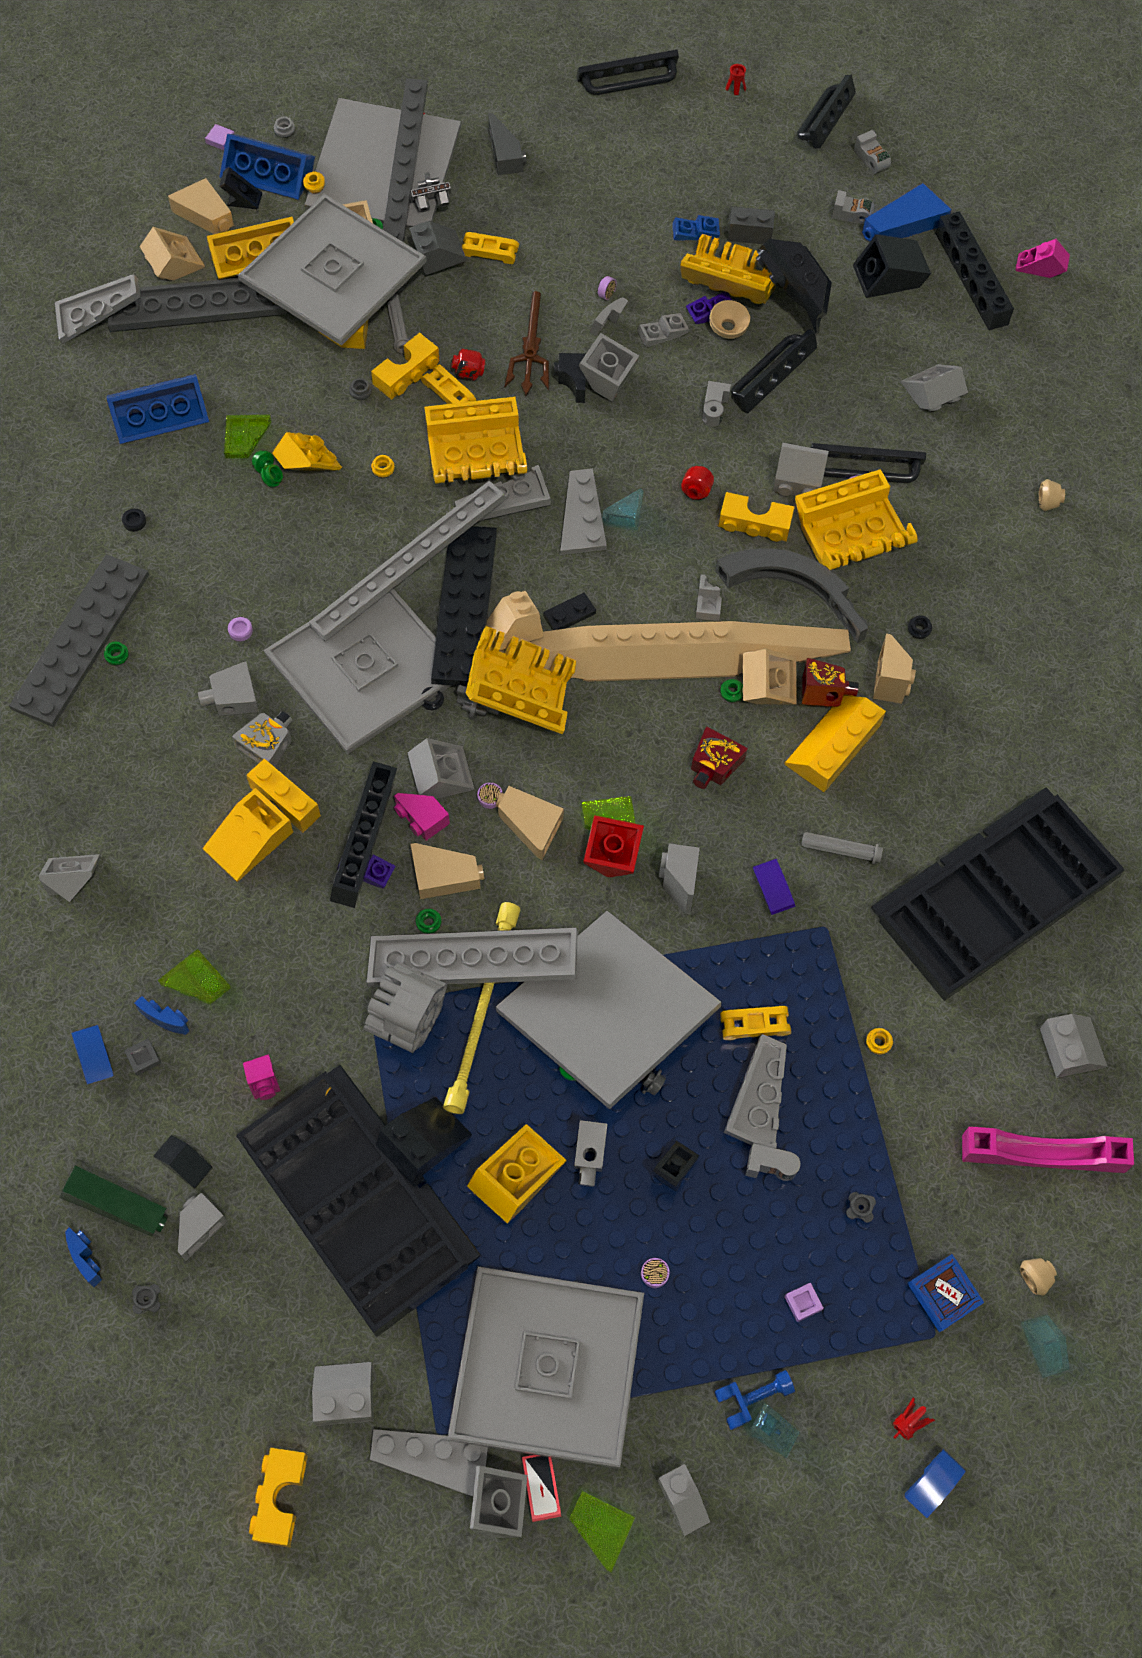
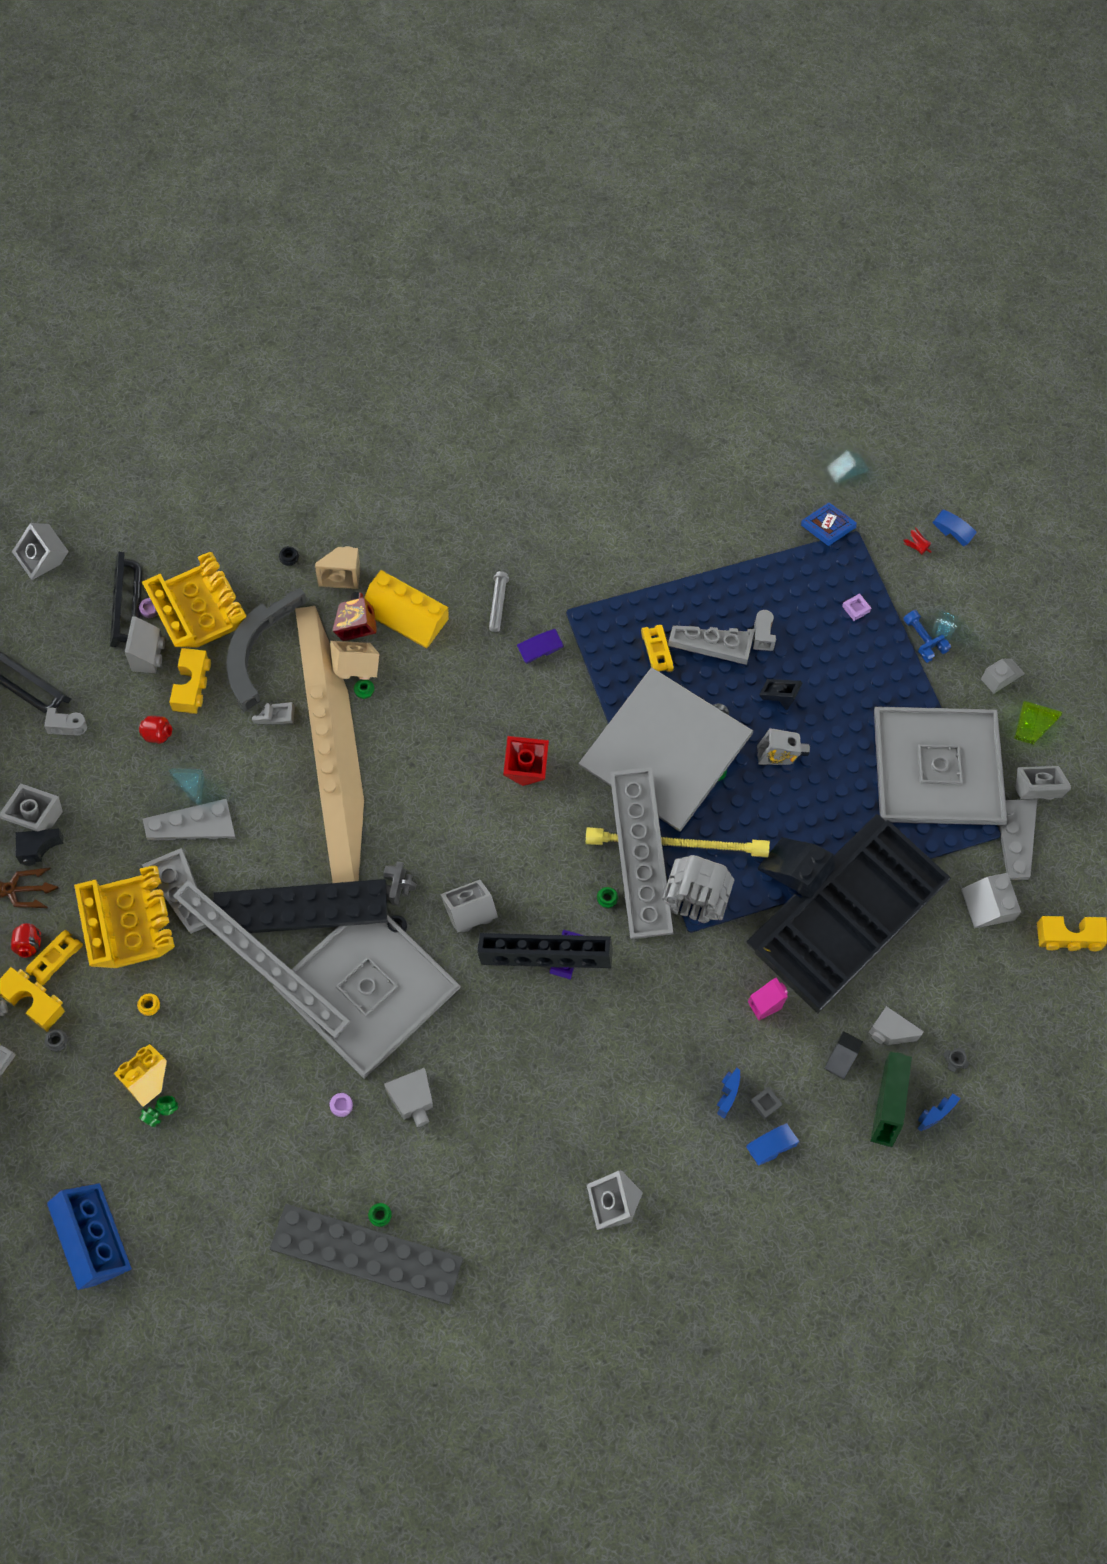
camera: 100 degrees left, 0 degrees up
(134, 520) = (225, 1232): black tile -> none
(196, 978) = (688, 1075): clear neon green wing -> none
(244, 434) = (117, 1143): clear neon green wing -> none
(248, 835) = (555, 1053): yellow slope -> none
(264, 738) = (457, 1056): light grey torso -> none
(285, 794) = (510, 1030): yellow arch -> none
(423, 813) = (514, 911): dark pink slope -> none
(444, 871) = (564, 890): tan slope -> none
(488, 795) = (485, 865): tile -> none
(515, 1173) = (808, 799): yellow slope -> none
(517, 618) = (319, 859): tan slope -> none
(519, 683) = (386, 846): yellow slope -> none
(530, 819) = (506, 828): tan slope -> none
(541, 1487) = (1021, 758): slope -> none
(569, 612) = (298, 823): black plate -> none
(613, 808) = (491, 769): clear neon green wing -> none
(655, 1273) = (858, 701): tile -> none
(679, 874) = (547, 706): light grey slope -> none
(716, 758) = (431, 695): dark red torso -> none
(867, 1202) = (786, 571): dark grey plate -> none
(884, 1035) = (652, 566): yellow plate -> none
(996, 892) = (522, 497): black door -> none
(1038, 1275) = (804, 470): tan cone -> none
(1050, 495) = (153, 464): tan cone -> none
(1072, 1045) = (635, 452): light grey slope -> none
(1087, 1154) = (714, 445): dark pink arch -> none

